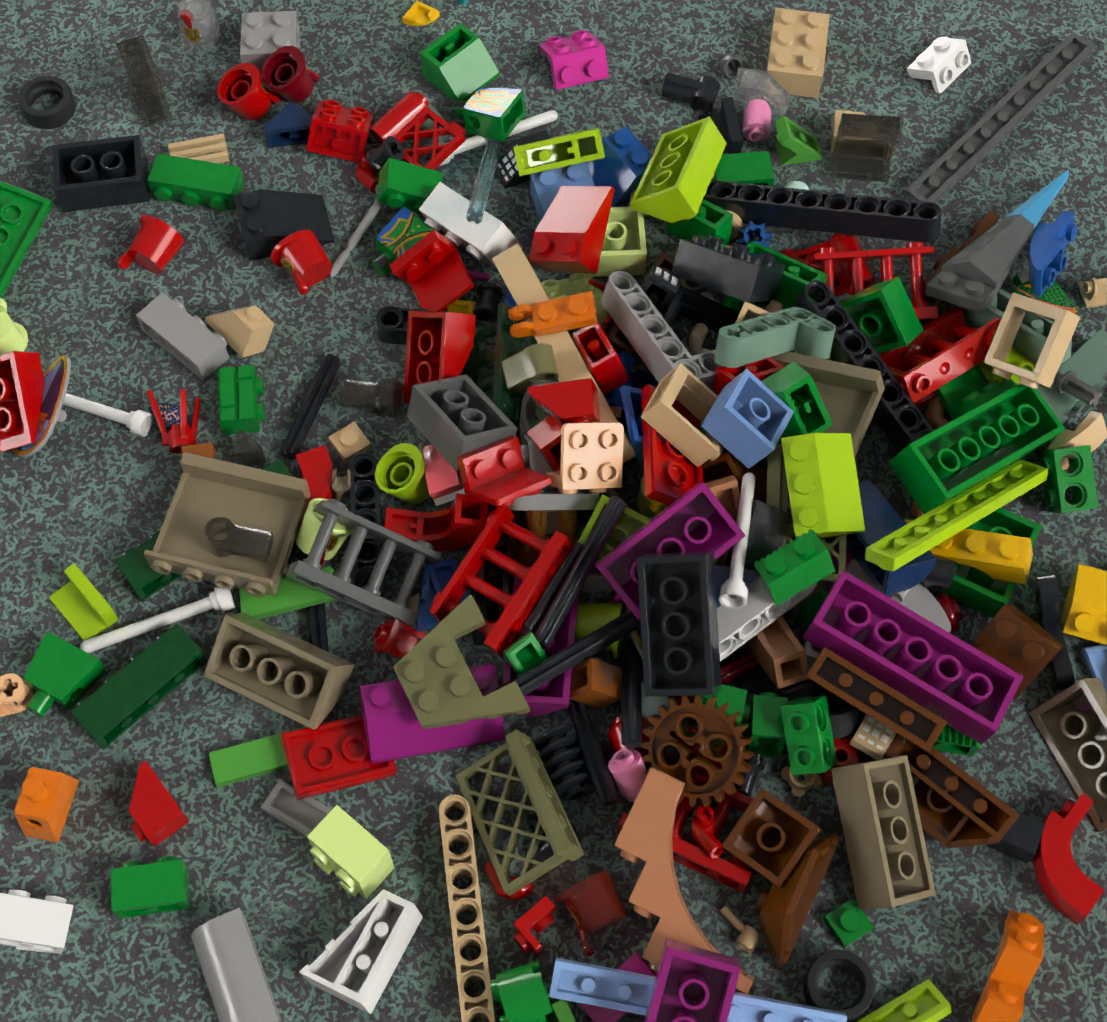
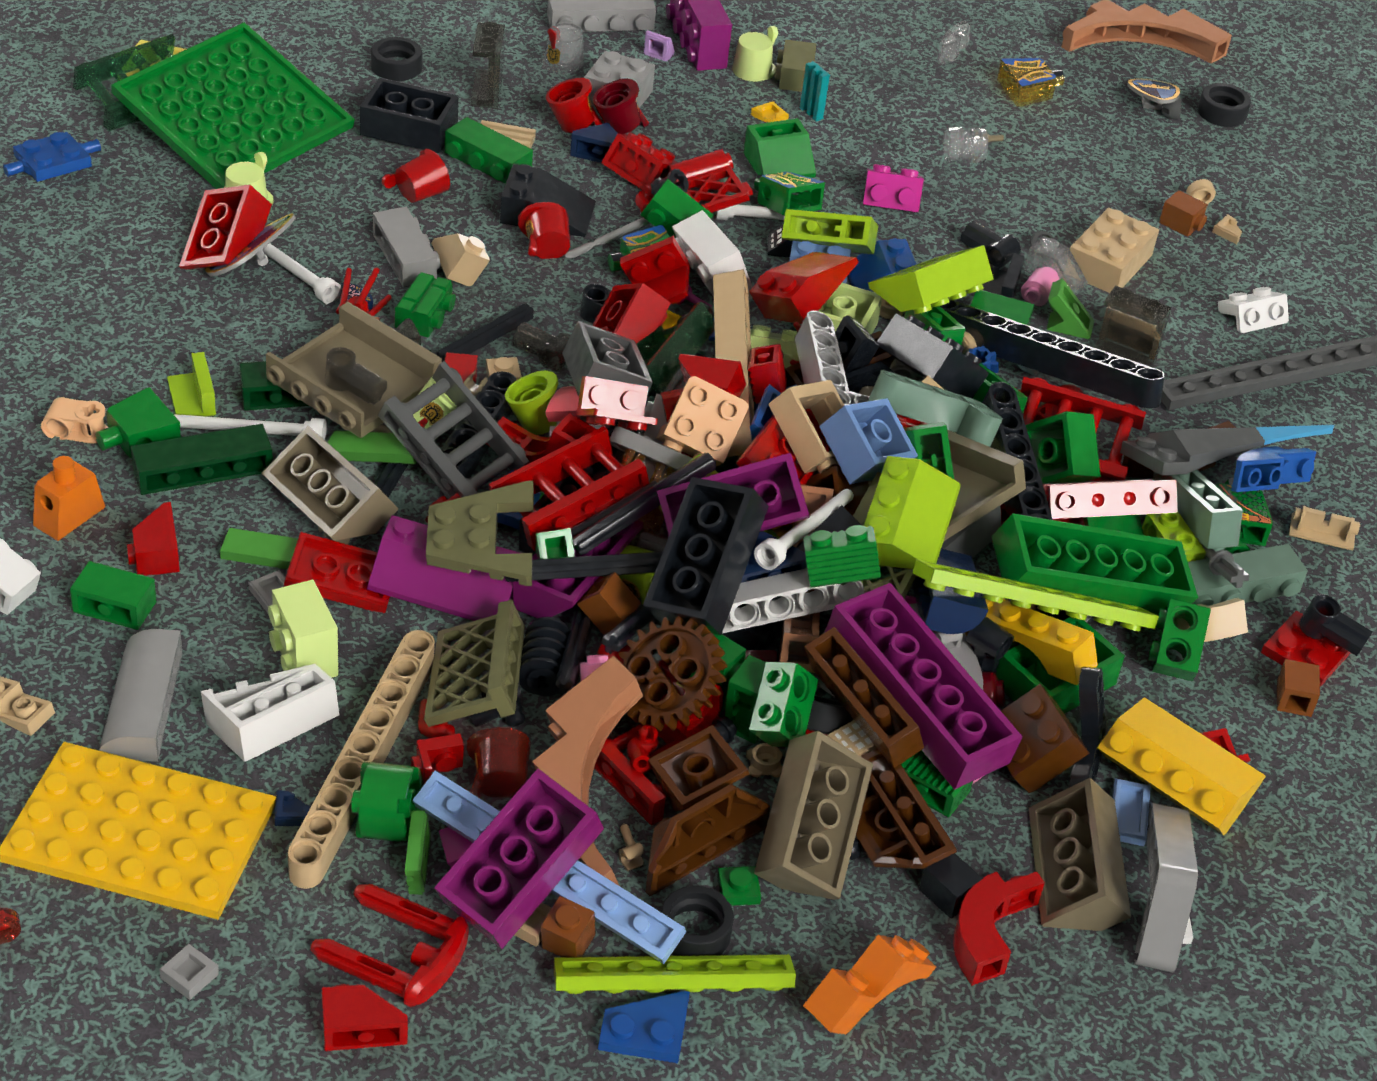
camera: 20 degrees right, 20 degrees down
(483, 182) = (743, 225): clear light blue axle -> none
(530, 366) = (701, 342): olive piece -> none
(554, 315) = (739, 322): orange hinge -> none
(1054, 347) = (1206, 512): tan window -> none

